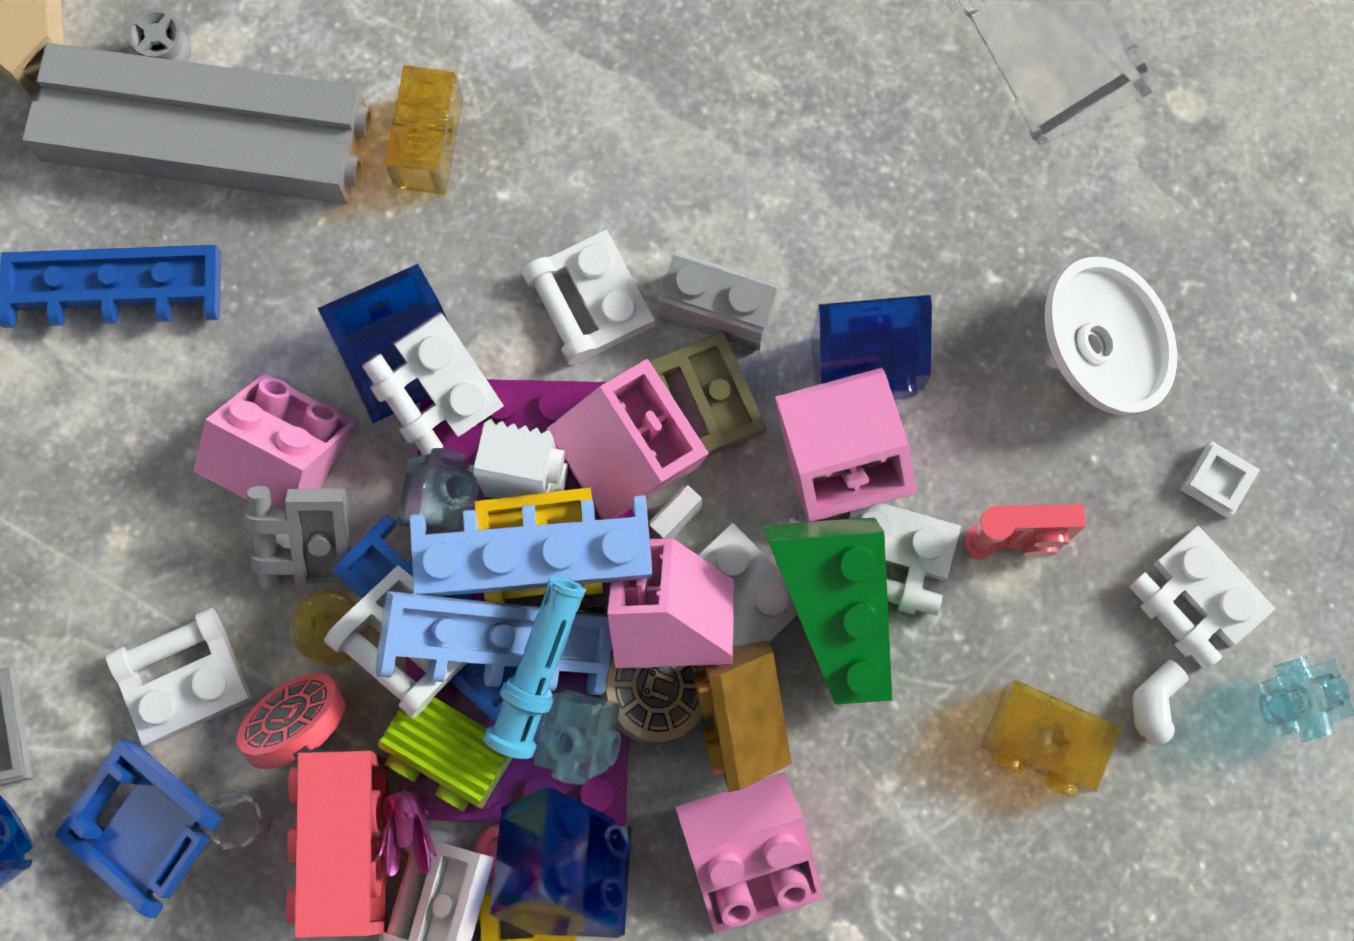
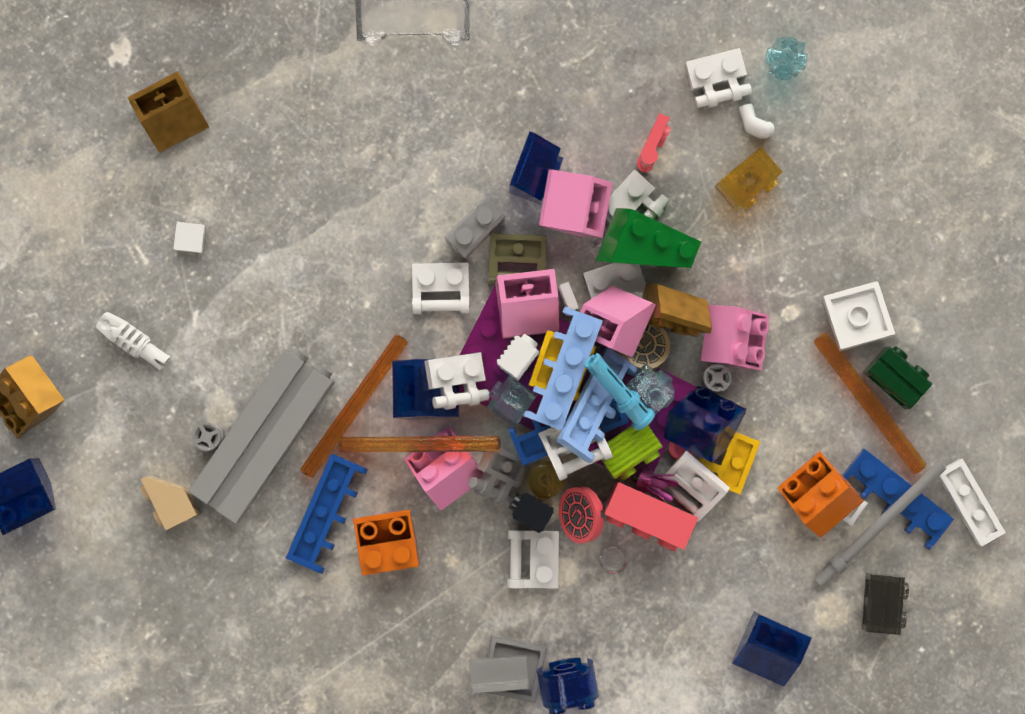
camera: 70 degrees left, 10 degrees up
(94, 405) = (386, 542): none -> orange slope
(150, 836) = (602, 599): blue container -> none
(254, 625) = (531, 511): none -> black brick
(293, 380) = (420, 444): none -> clear orange axle
(315, 248) = (353, 406): none -> clear orange axle
(424, 130) = (320, 327): clear yellow brick -> none
(651, 849) = (720, 374): none -> light grey wheel
(1110, 336) = (581, 55): white dish -> none
(1220, 479) = (668, 39): white tile -> none

